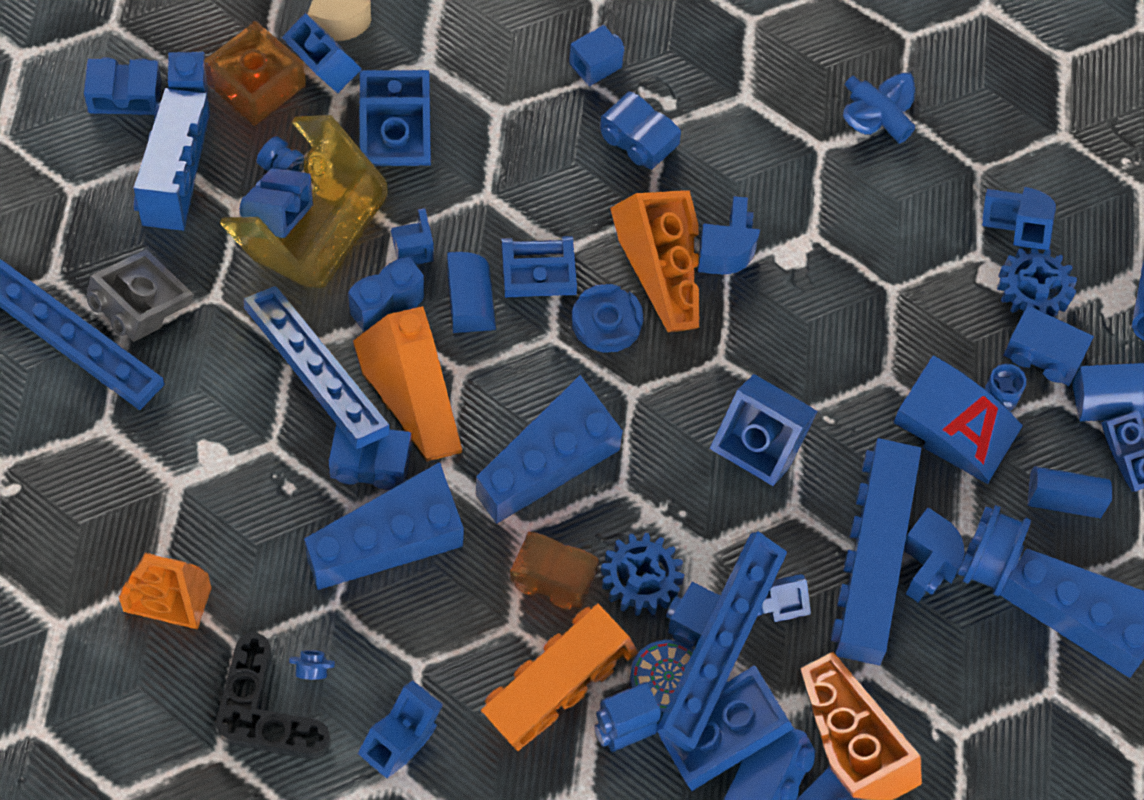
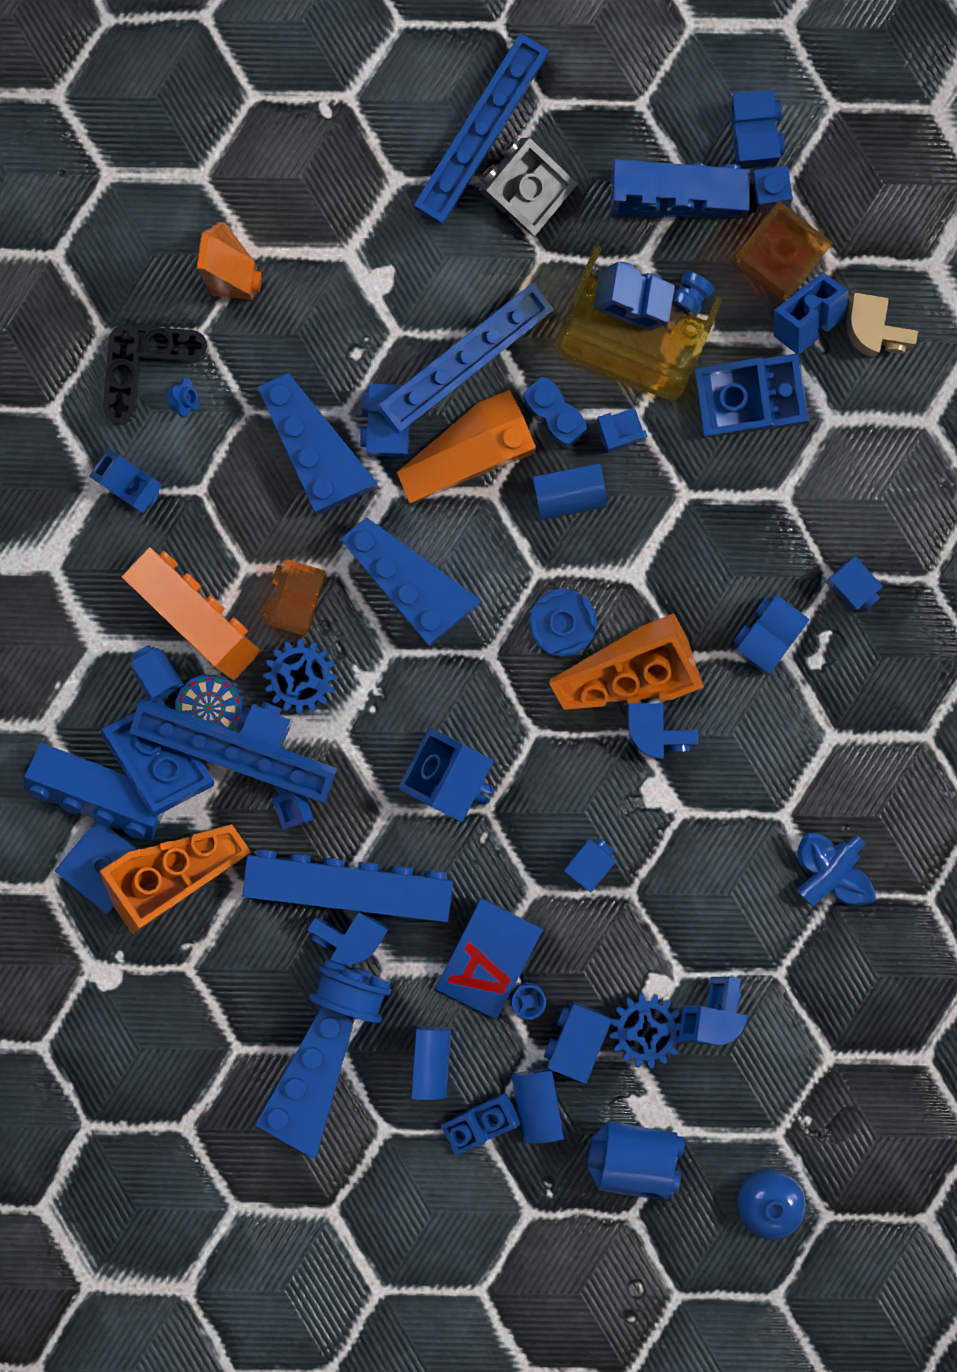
camera: 90 degrees right, 25 degrees up
(539, 275) = (597, 556): blue plate -> none
(864, 312) = (590, 863): none -> blue brick

